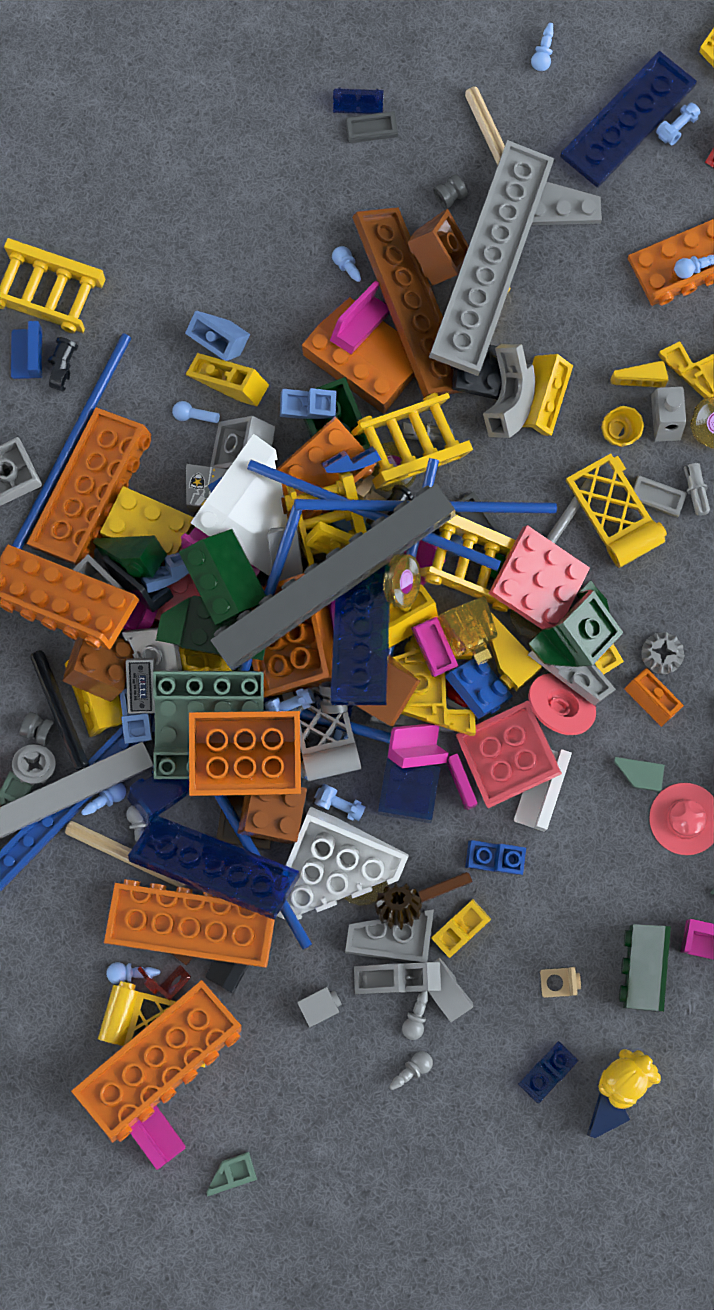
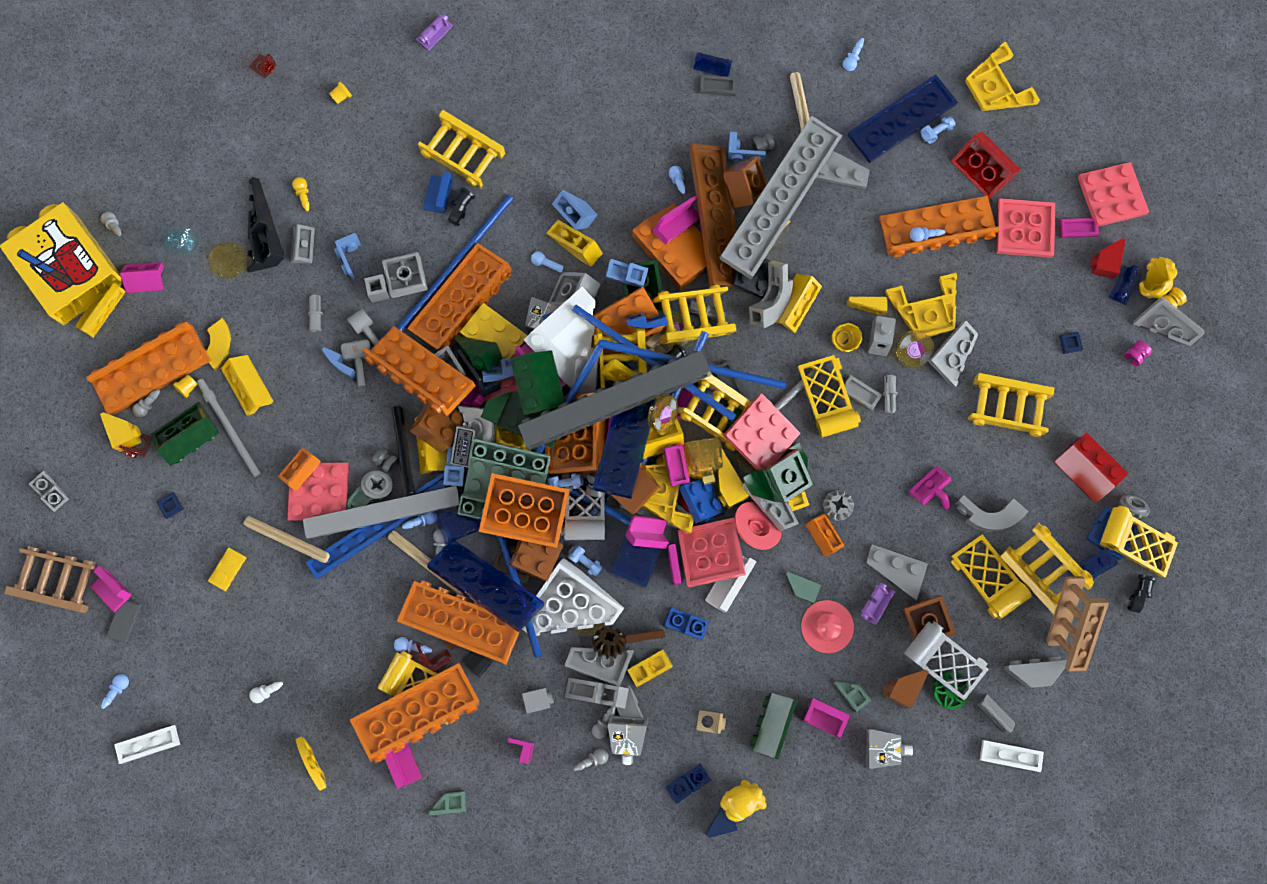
camera: 10 degrees right, 0 degrees up
(30, 1162) = (311, 763): none -> yellow tile
(321, 1076) = (526, 750): none -> dark pink panel
(421, 214) = (738, 155): none -> medium blue bracket
(452, 1027) = (627, 736): none -> light grey torso

